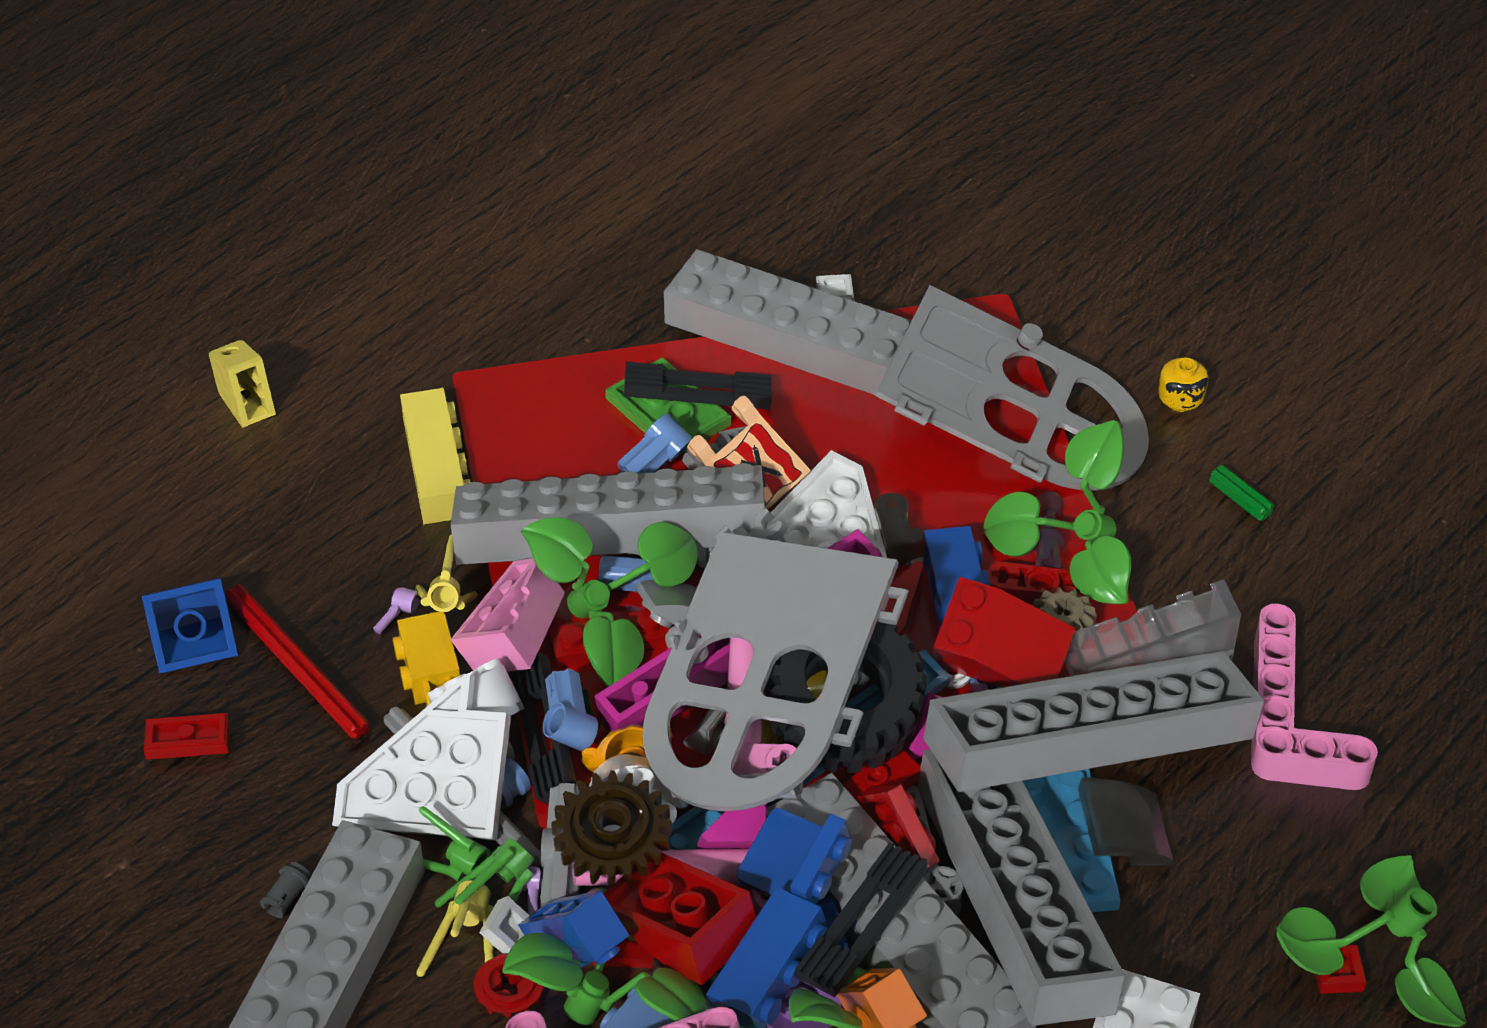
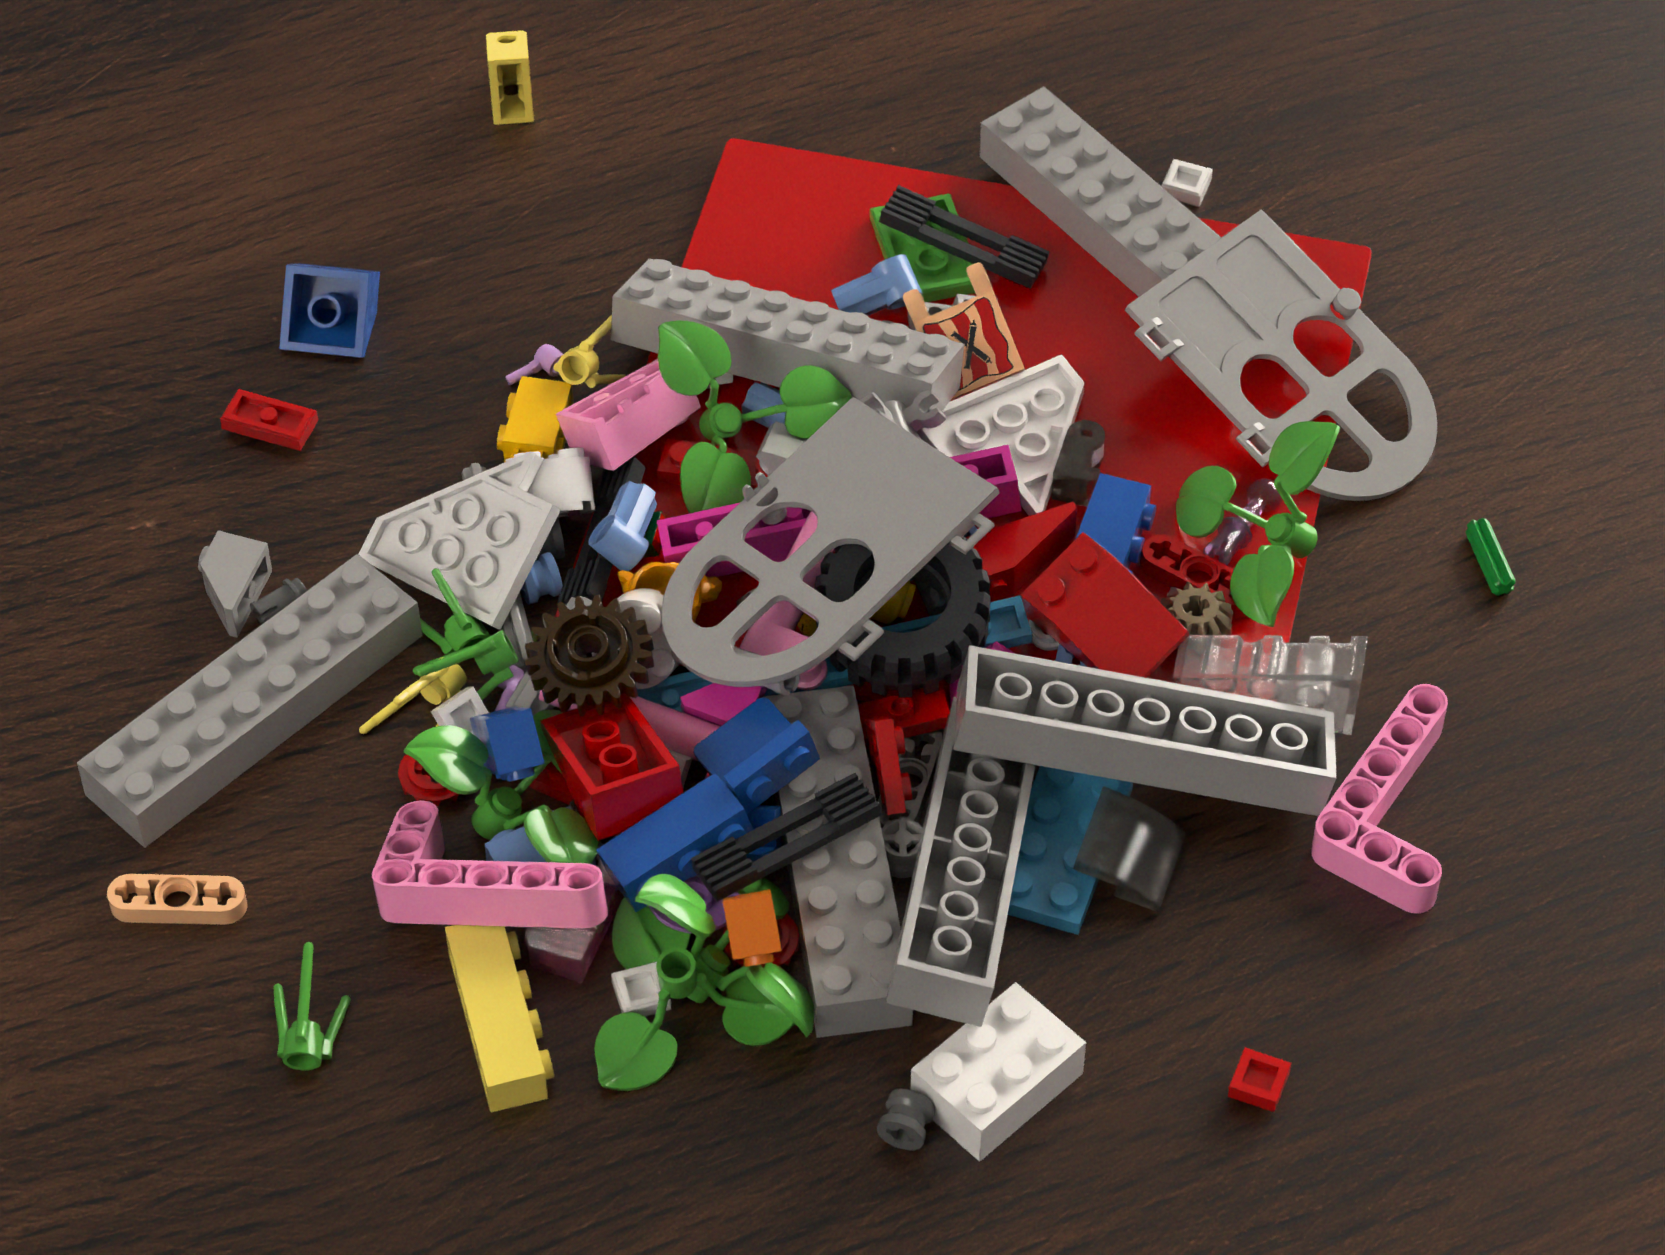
camera: 25 degrees right, 5 degrees up
(231, 883) = (234, 576): none -> light grey slope
(297, 662) = (413, 384): red axle -> none
(434, 451) = (662, 209): light yellow brick -> none
(1183, 384) = (1497, 414): yellow head -> none
(1391, 888) = (1367, 1031): bright green plant -> none

